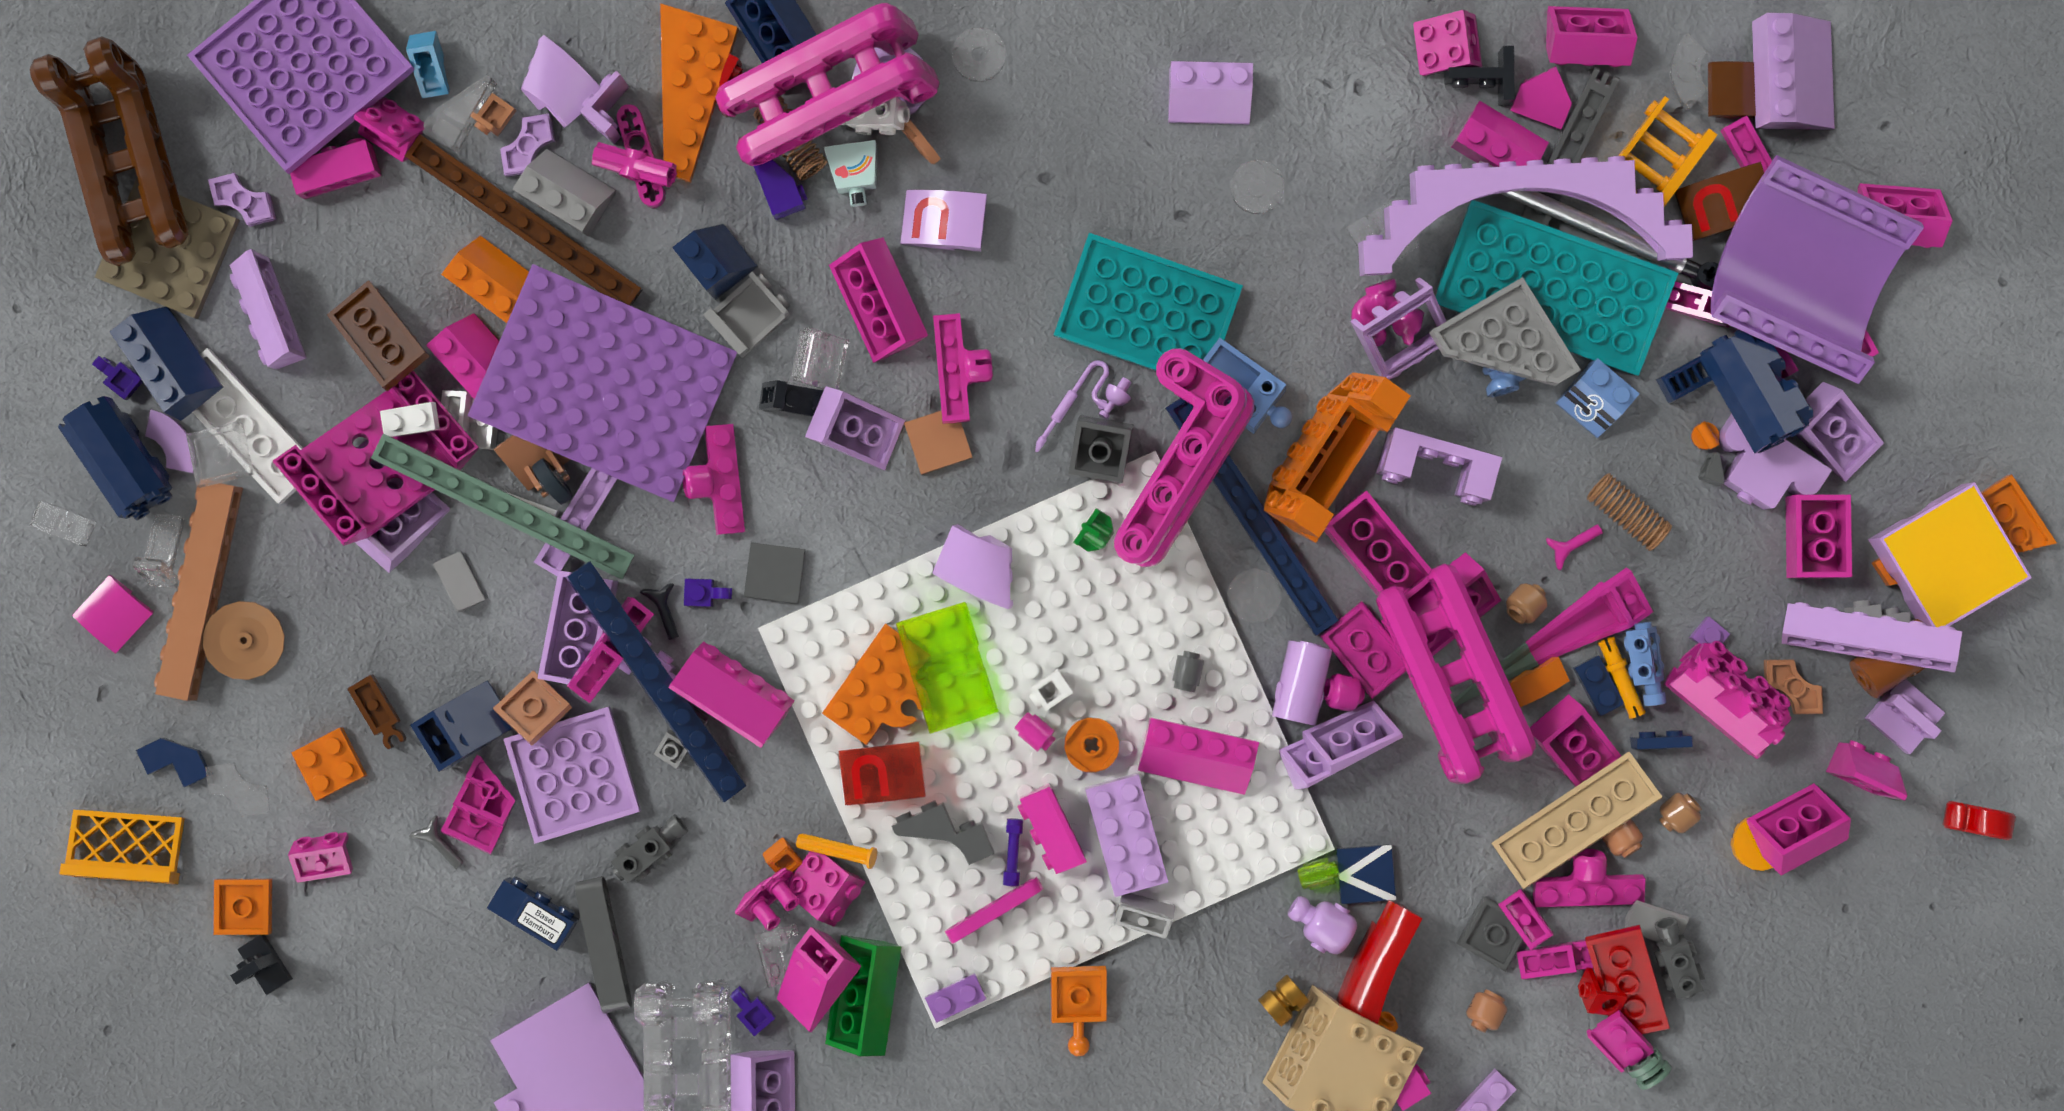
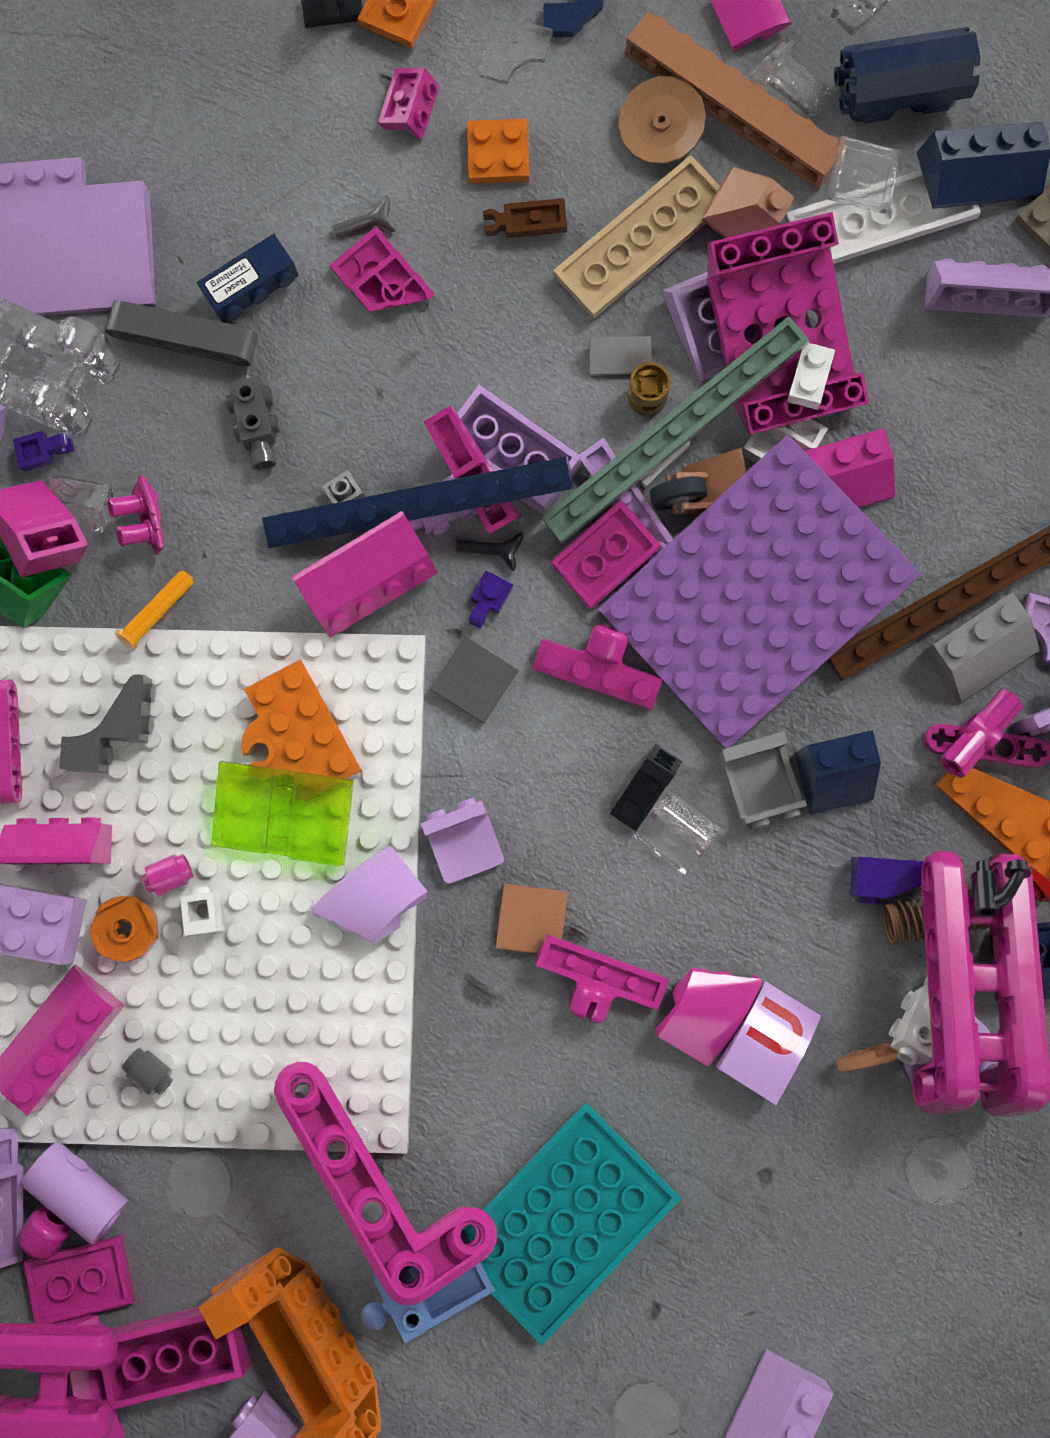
camera: 120 degrees right, 5 degrees down
(119, 378) = (991, 114): dark purple plate -> none
(172, 439) = (905, 138): lavender tile -> none
(289, 535) = (746, 204): none -> nougat slope
(350, 611) = (638, 238): none -> tan plate
(378, 335) = (915, 385): reddish brown plate -> none
(461, 726) = (469, 292): dark blue slope -> none
(476, 544) = (649, 381): none -> pearl gold wheel
(487, 276) = (929, 524): orange slope -> none
(532, 708) = (452, 368): nougat plate -> none
(573, 776) = (367, 380): lavender plate -> none
(627, 516) = (606, 554): none -> dark pink tile
(759, 109) = (984, 886): none -> black plant
(782, 856) = (179, 551): orange slope -> none
(824, 887) = (124, 578): dark pink bracket -> none
(854, 169) = (870, 969): light aqua torso -> none
(855, 427) = (586, 835): lavender slope -> none
(878, 299) = (714, 927): dark pink slope -> none
(882, 773) = (205, 693): clear red slope -> none
(903, 520) = (463, 840): none -> lavender bracket
(943, 275) = (707, 1012): none -> dark pink slope
(1011, 875) = (35, 777): dark purple bar -> none
(1095, 532) = (347, 1044): green piece -> none
(1100, 448) = (435, 1095): dark grey slope -> none
(1115, 395) = (488, 1138): lavender piece -> none
(1265, 536) = (267, 1228): dark blue plate -> none

